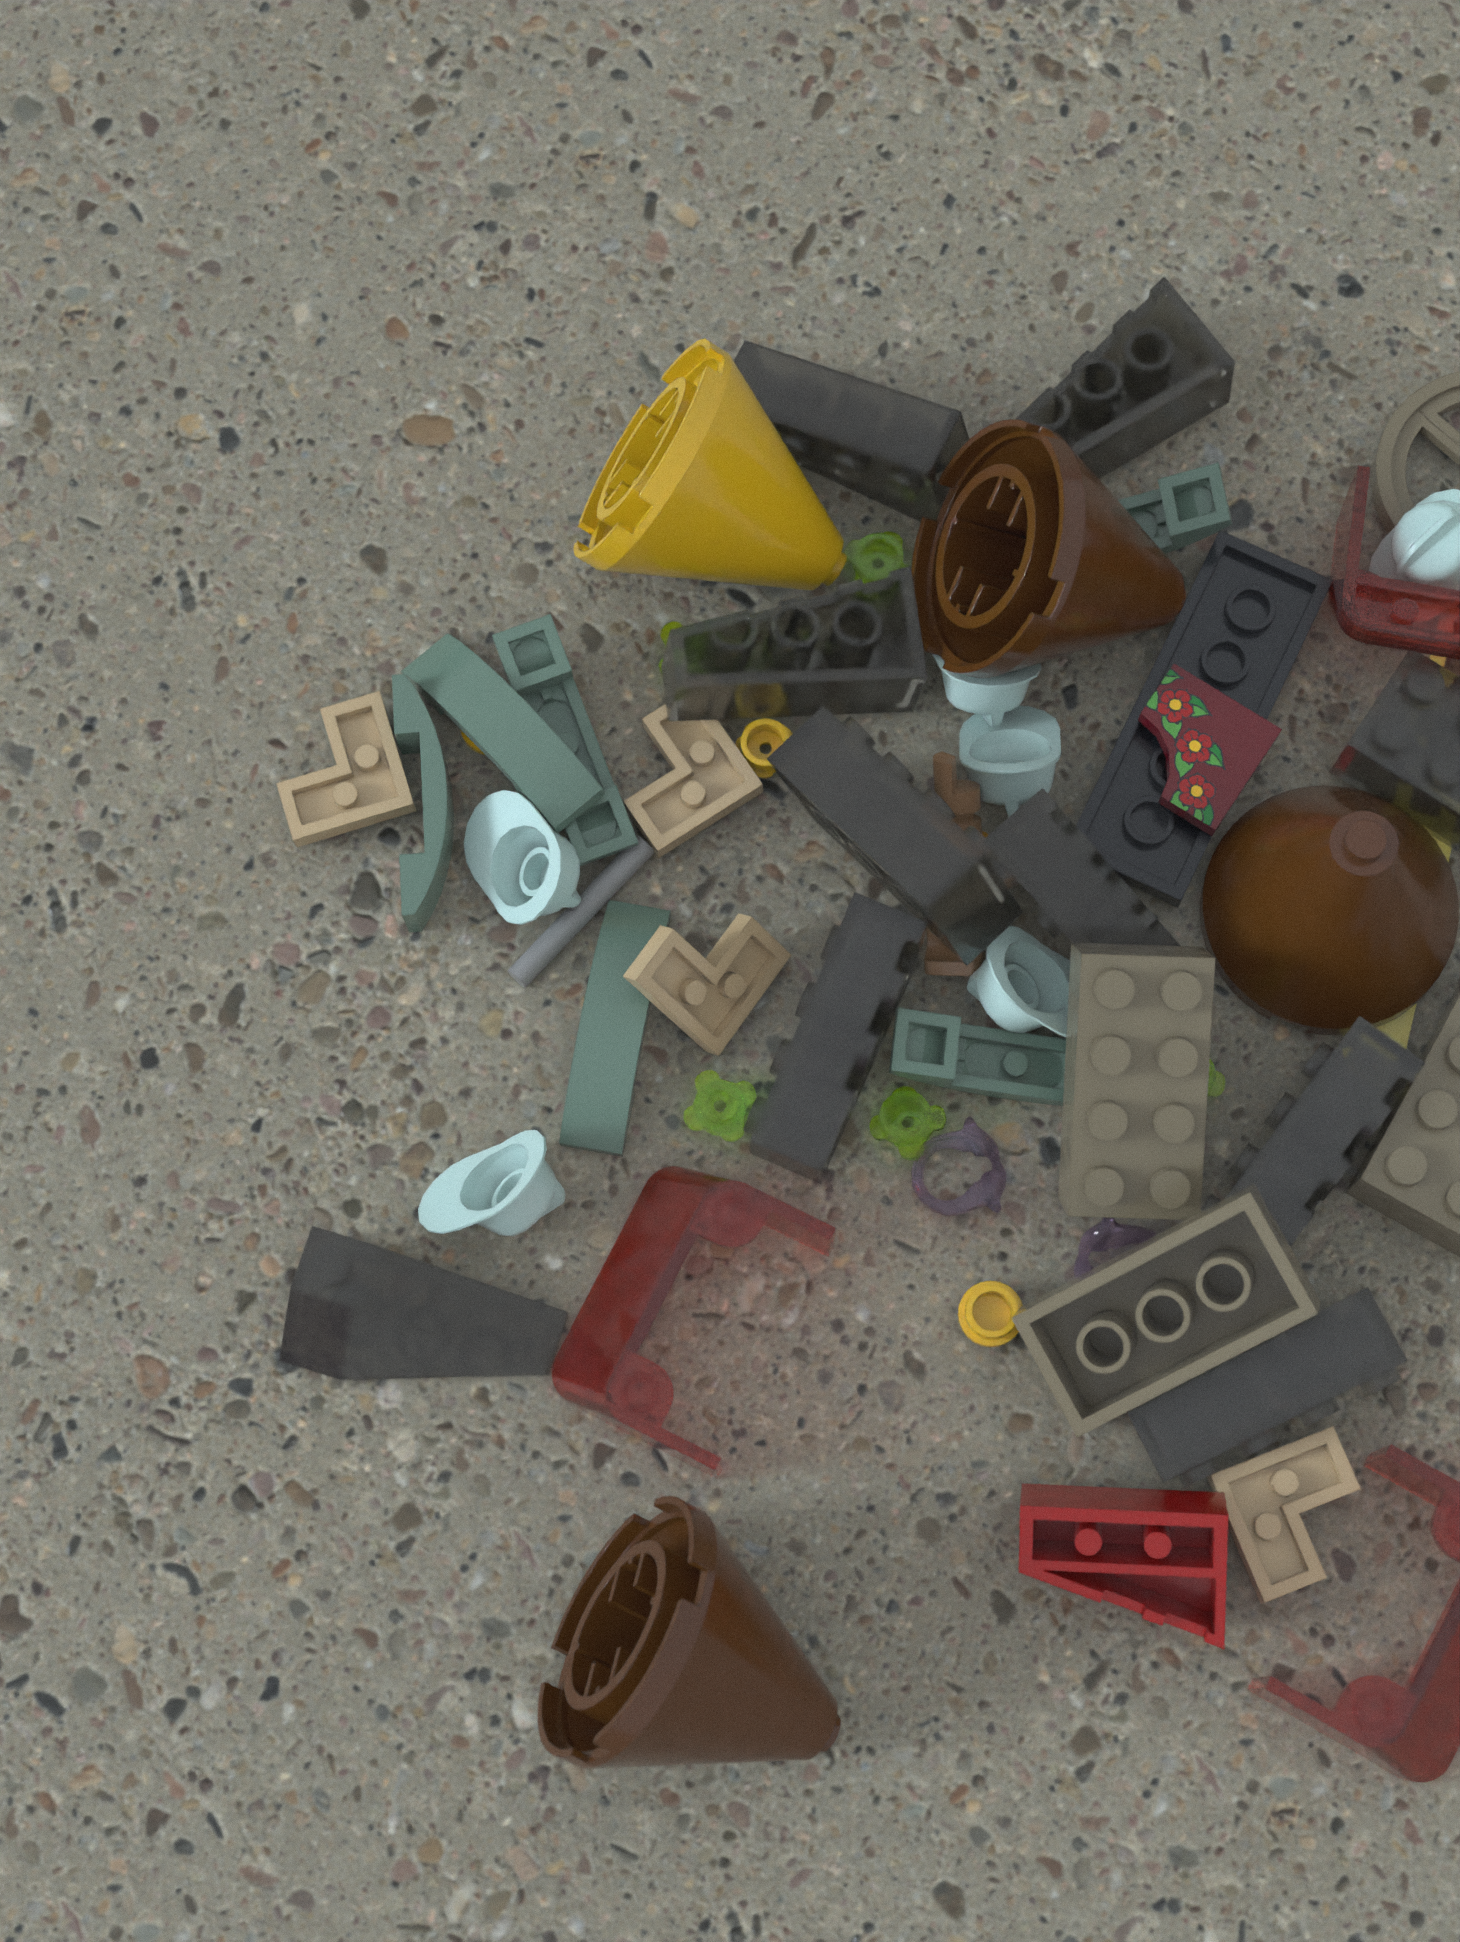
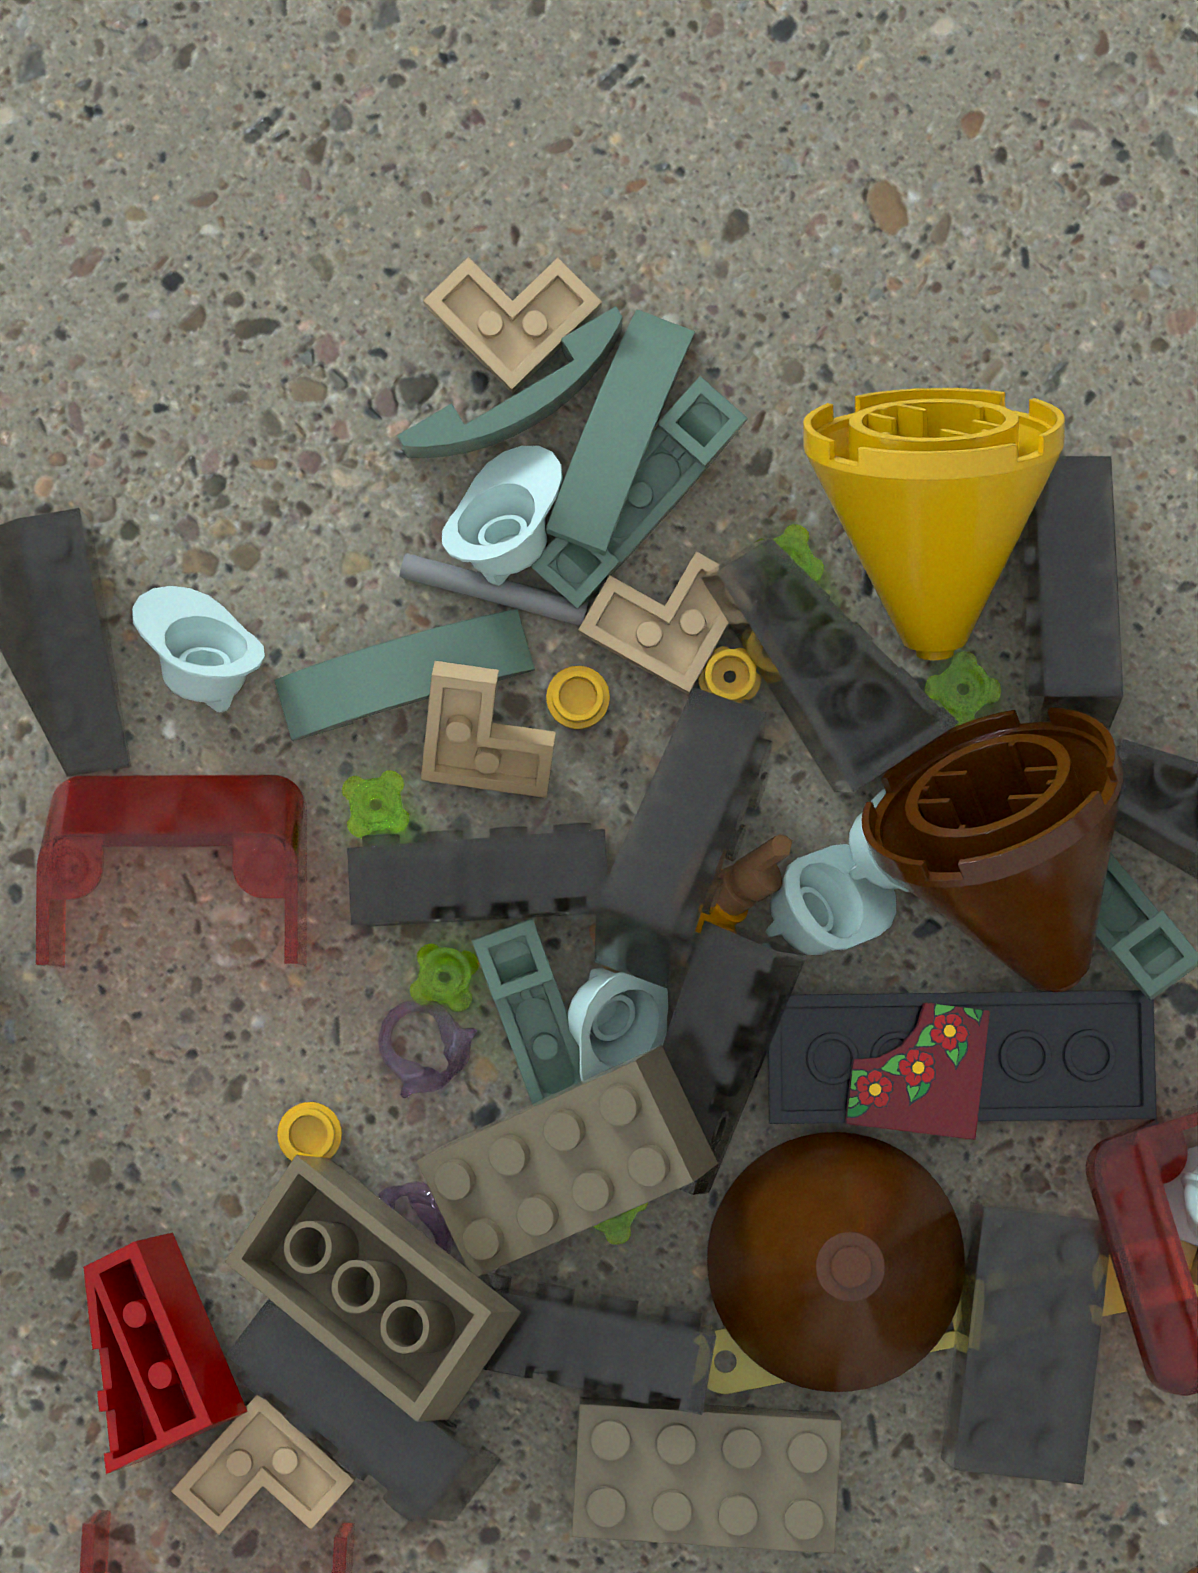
camera: 60 degrees right, 10 degrees up
(716, 885) = (578, 697): none -> yellow plate

